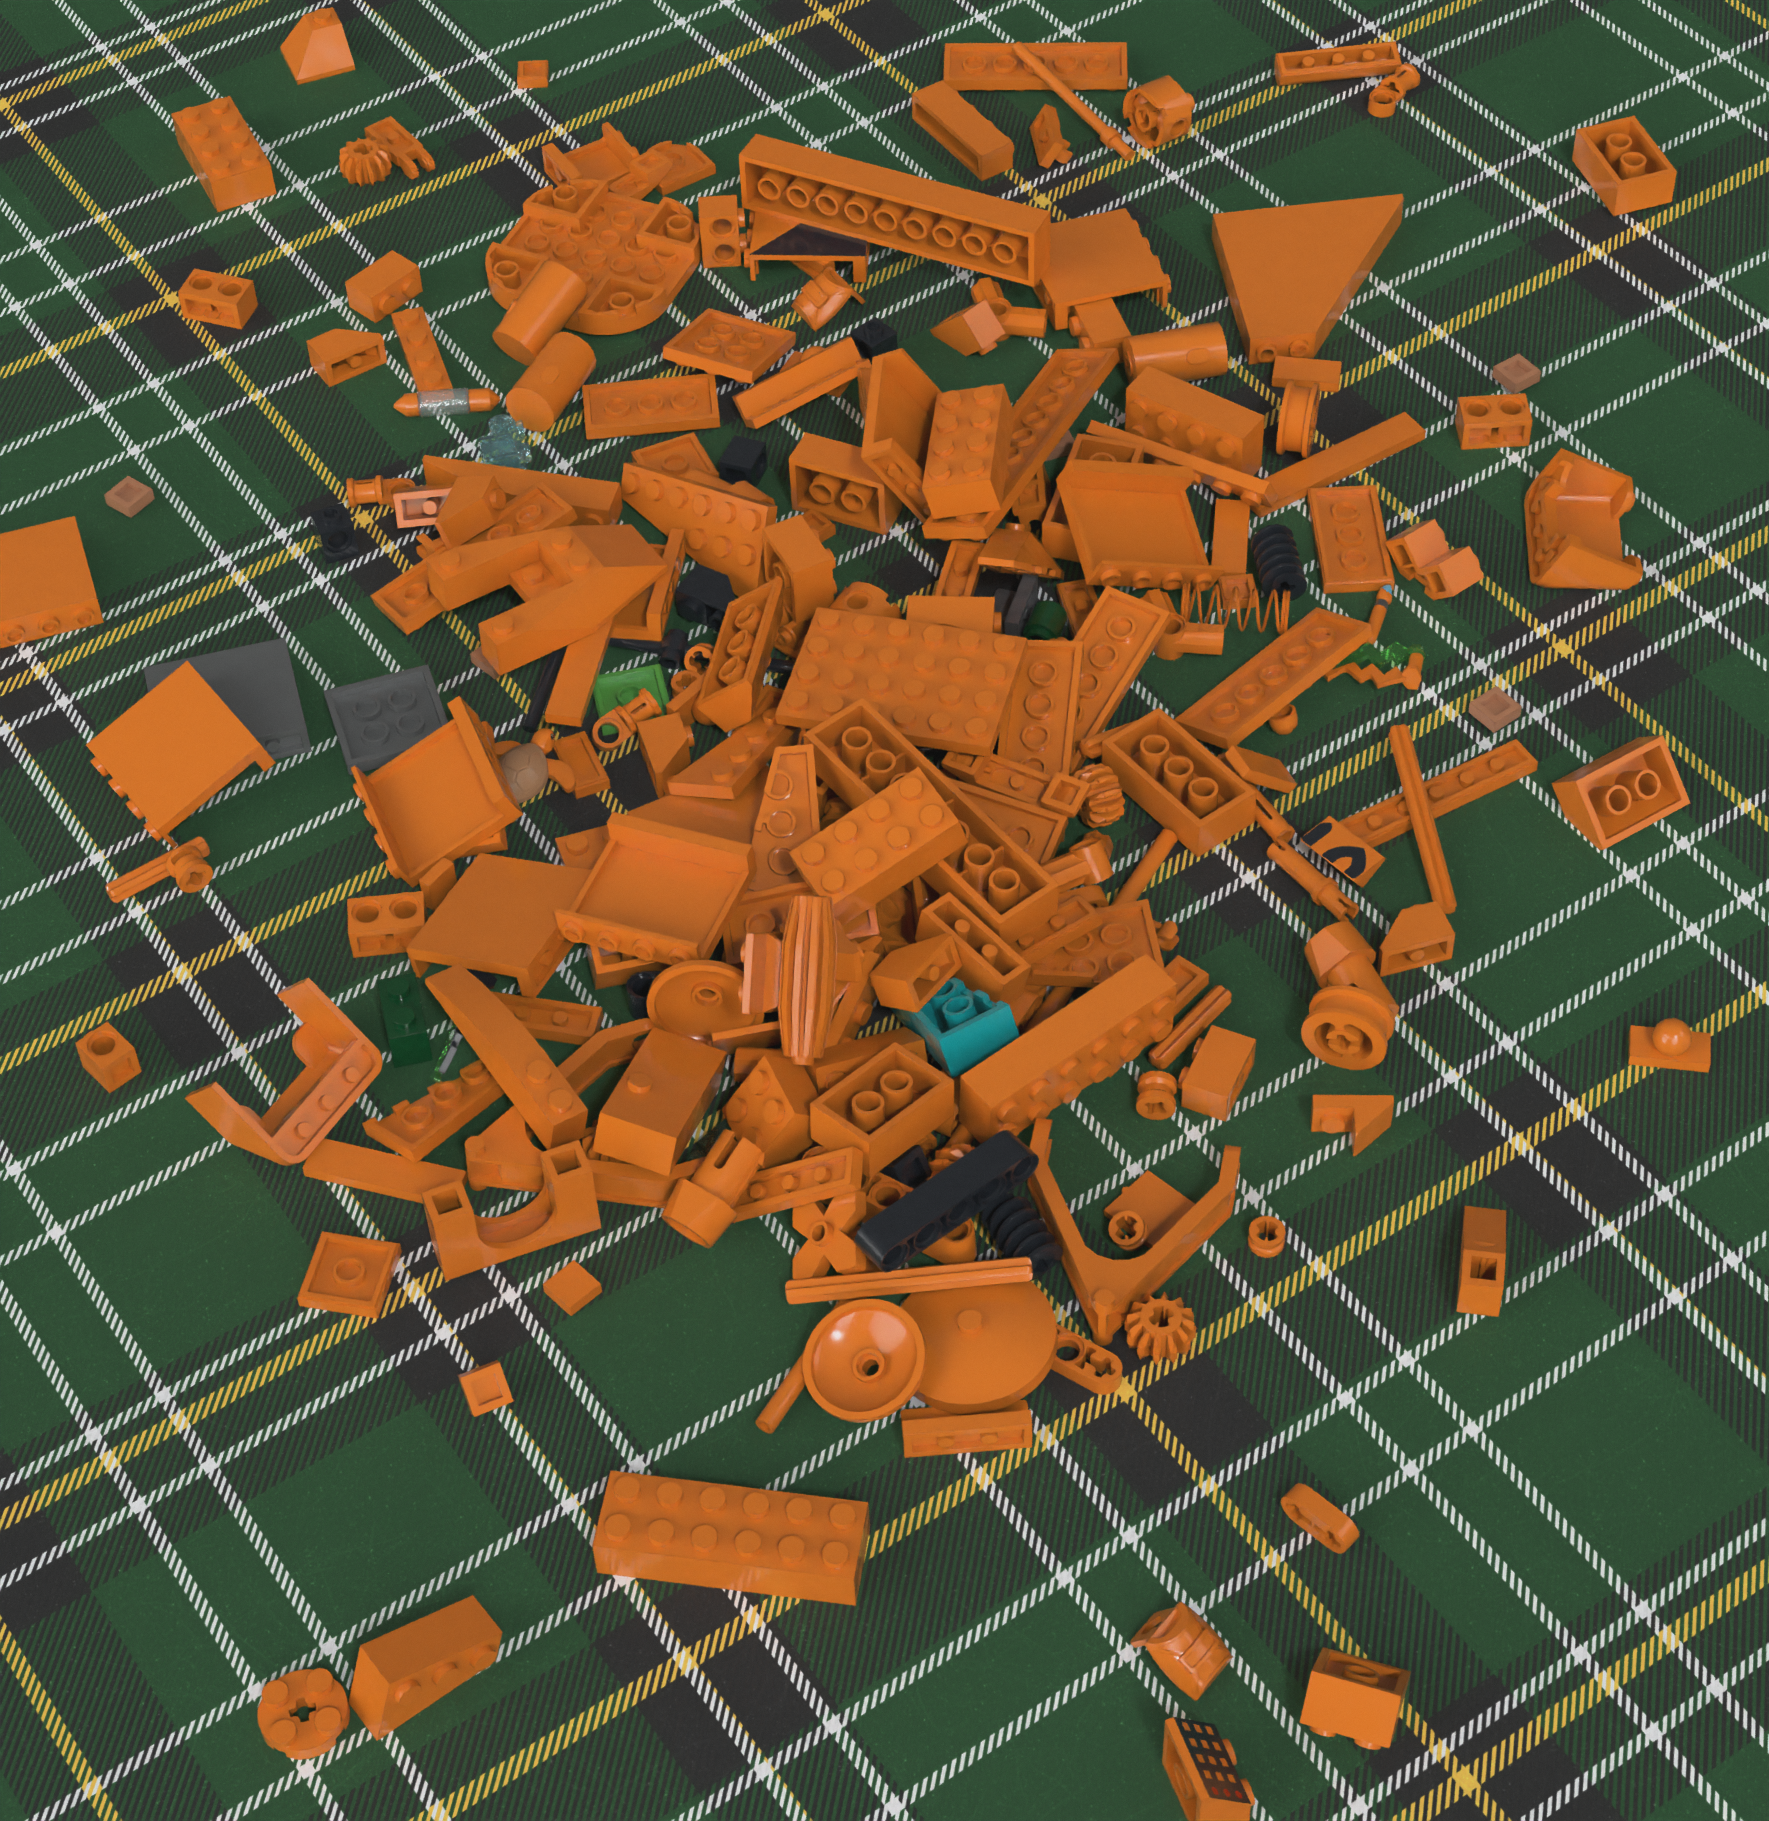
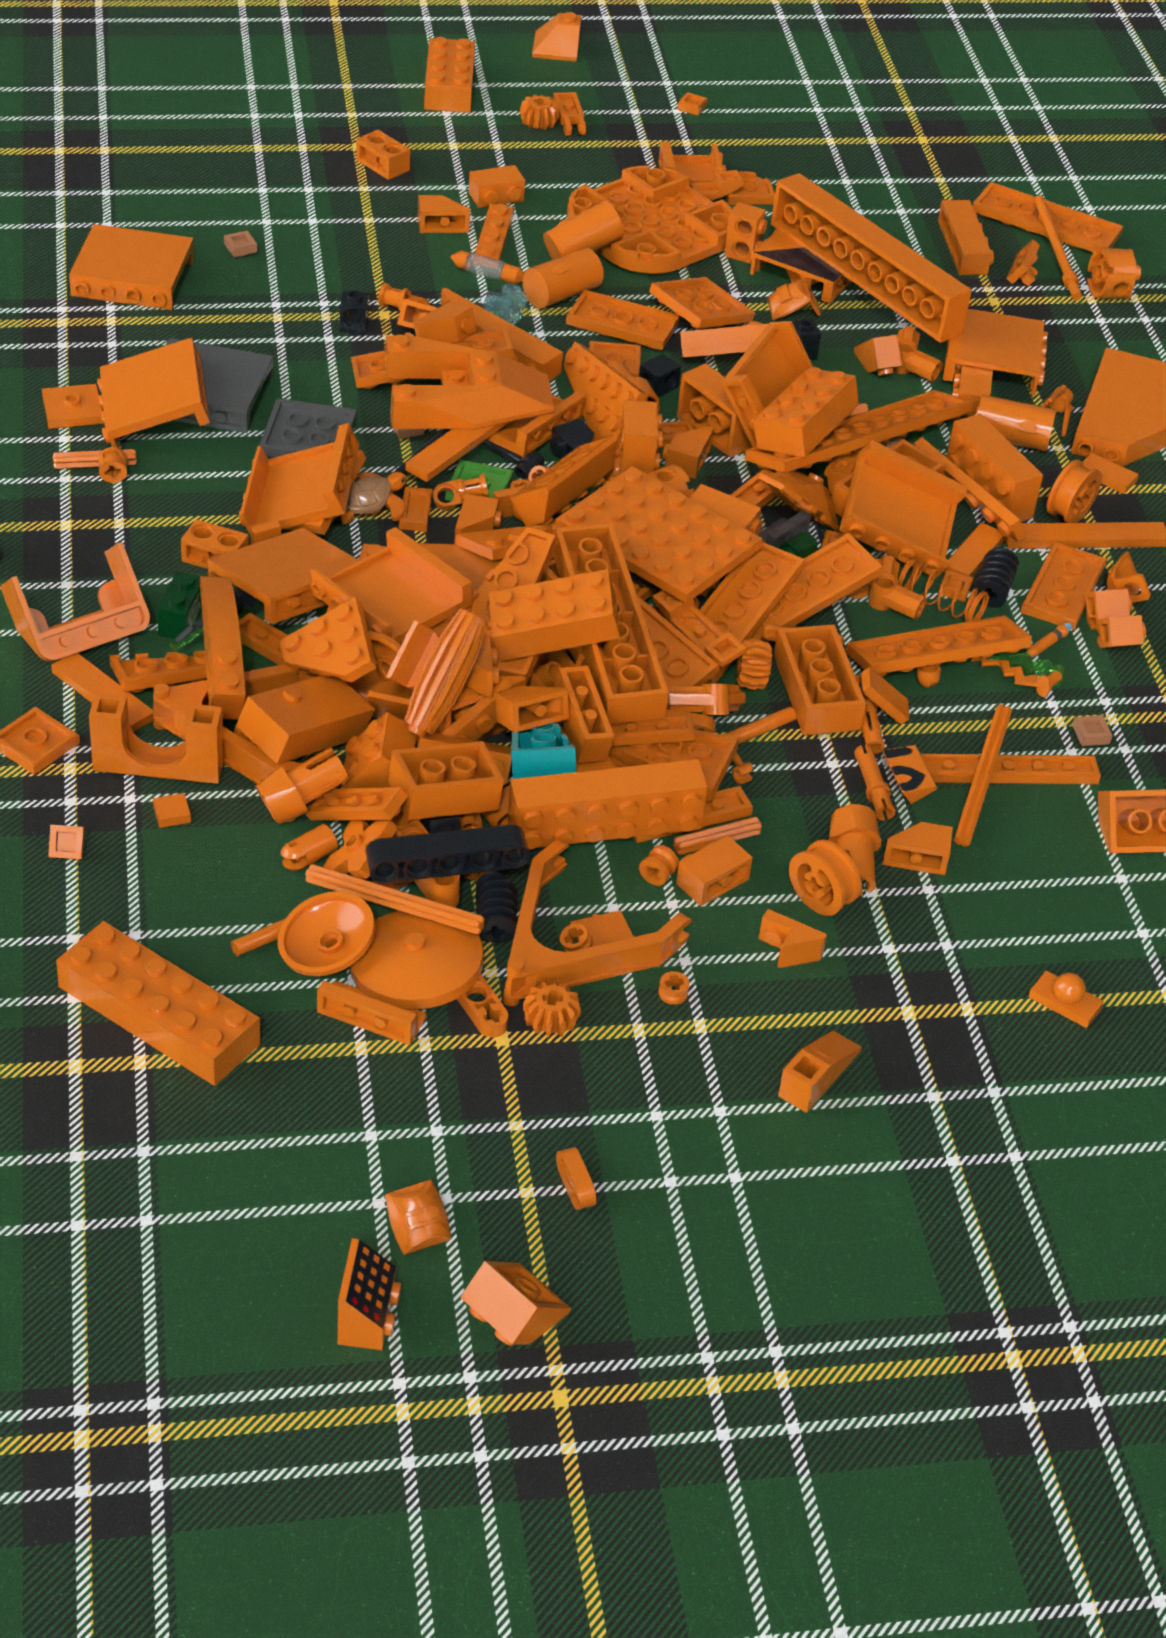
camera: 20 degrees right, 5 degrees down
(78, 809) = (72, 406): none -> orange plate
(642, 997) = (332, 644): none -> orange plate
(764, 1260) = (309, 848): none -> orange piece
(847, 547) = (689, 450): none -> orange slope
(1200, 305) = (1061, 400): none -> orange plant
(1413, 506) = (1124, 576): none -> orange piece

